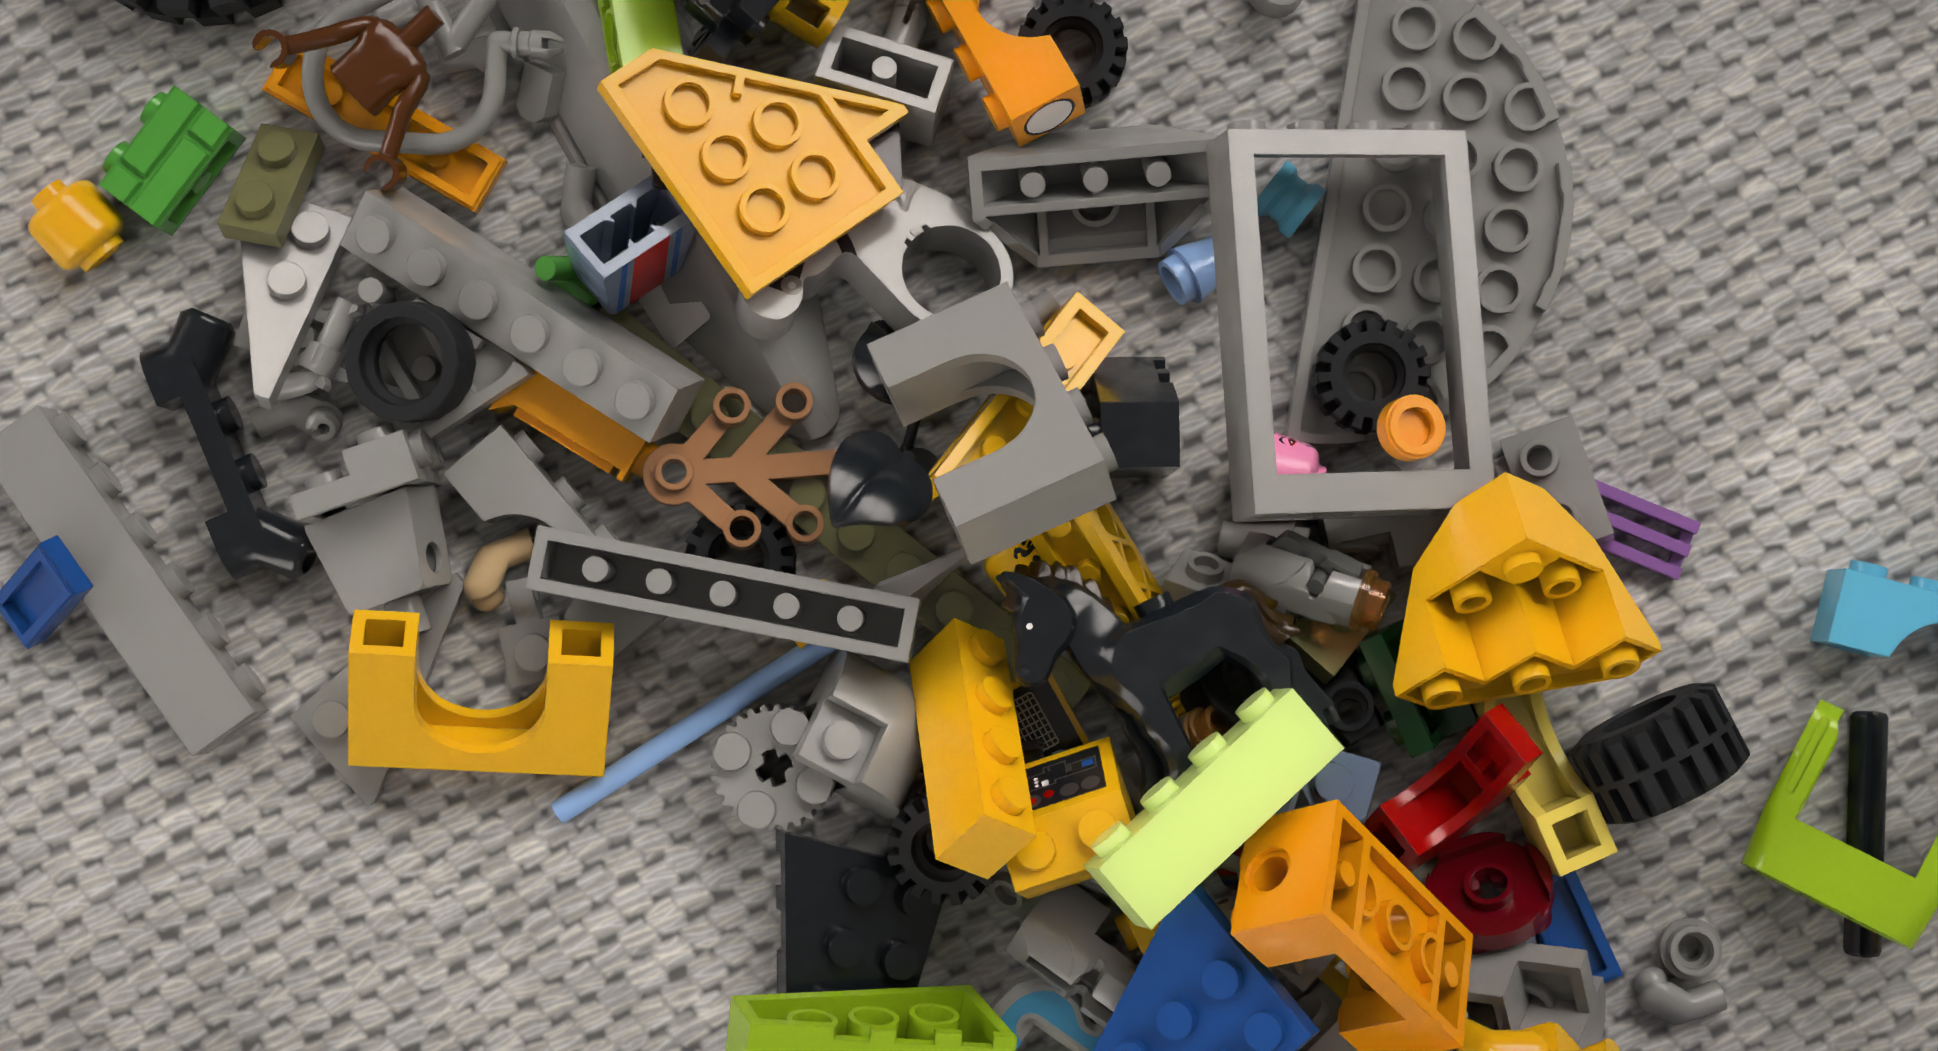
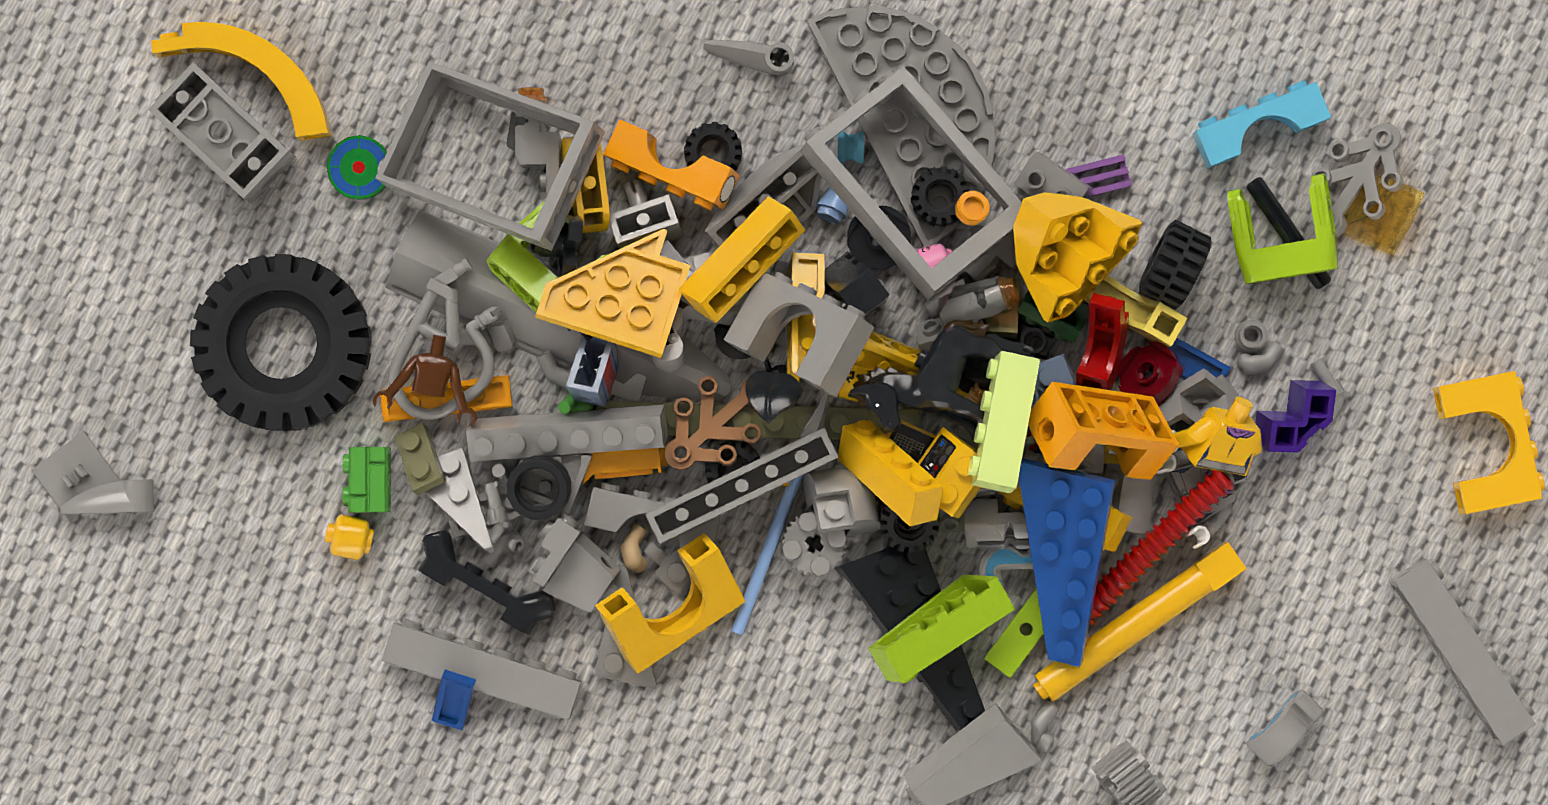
camera: 35 degrees left, 0 degrees up
(989, 241) = (742, 259): none -> yellow brick
(1195, 356) = (861, 244): none -> black plate

